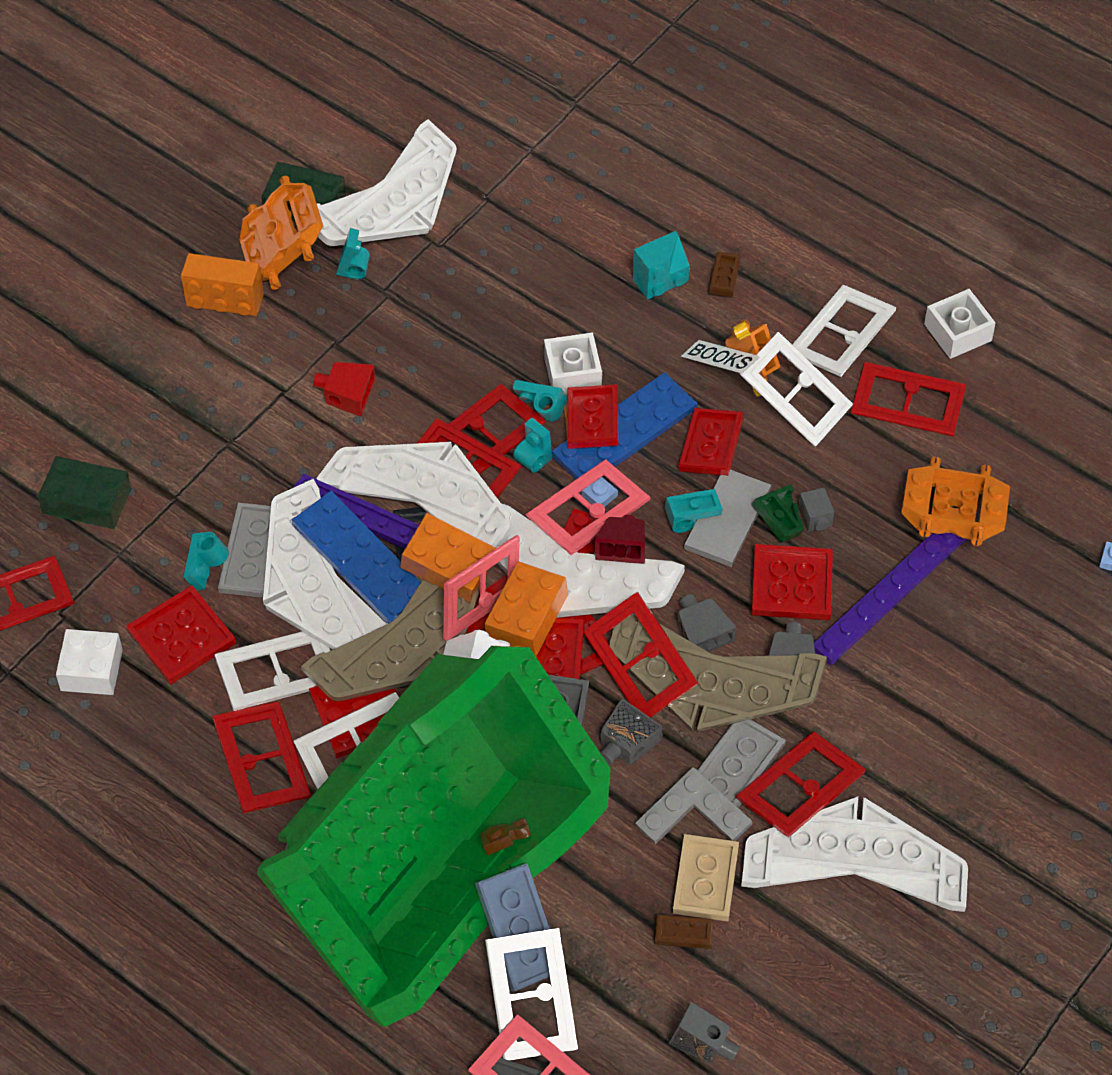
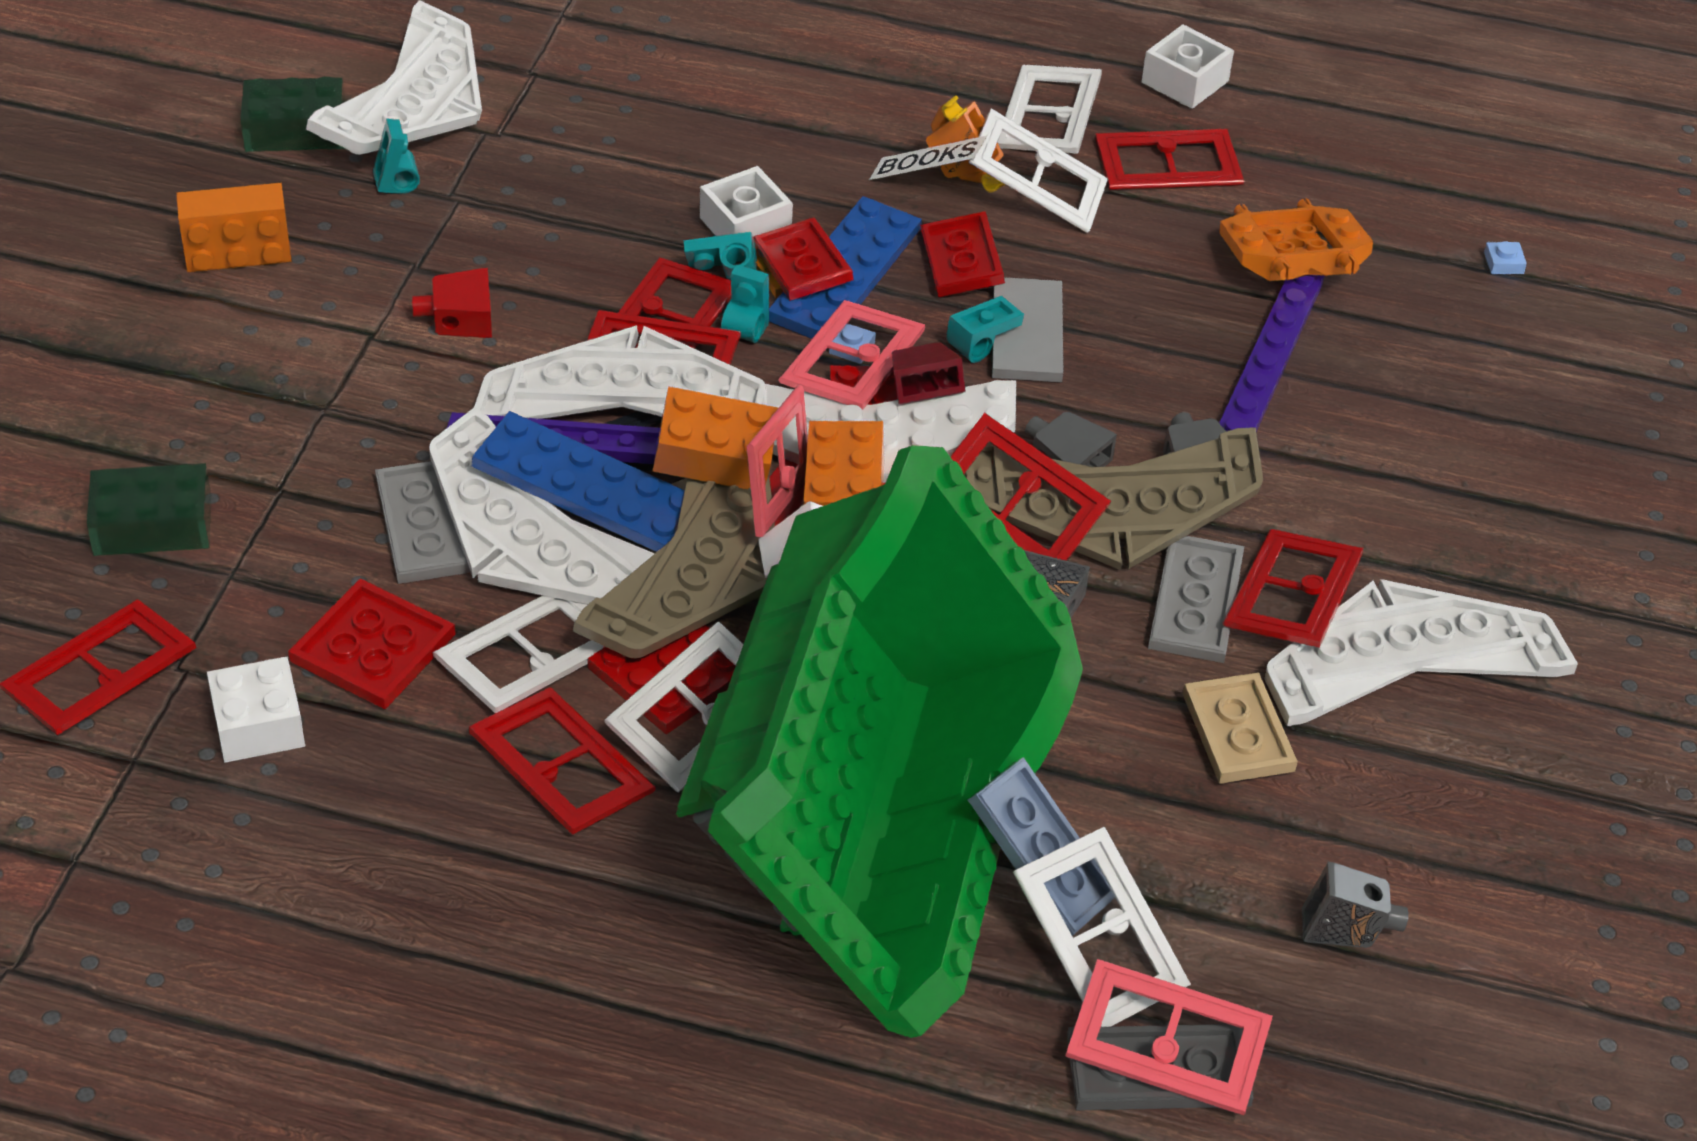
camera: 25 degrees left, 10 degrees down
(204, 552) = (361, 536): teal plate -> none
(281, 245) = (303, 156): orange piece -> none
(502, 836) = (962, 744): reddish brown plate -> none
(660, 265) = (797, 85): teal slope -> none
(684, 931) = (1248, 798): reddish brown plate -> none
(688, 793) = (1173, 632): light grey plate -> none
(725, 274) = (877, 83): reddish brown plate -> none
(780, 513) = (1099, 312): dark green wing -> none
(792, 582) = (1149, 375): red plate -> none
(816, 509) = (1133, 292): dark grey brick -> none

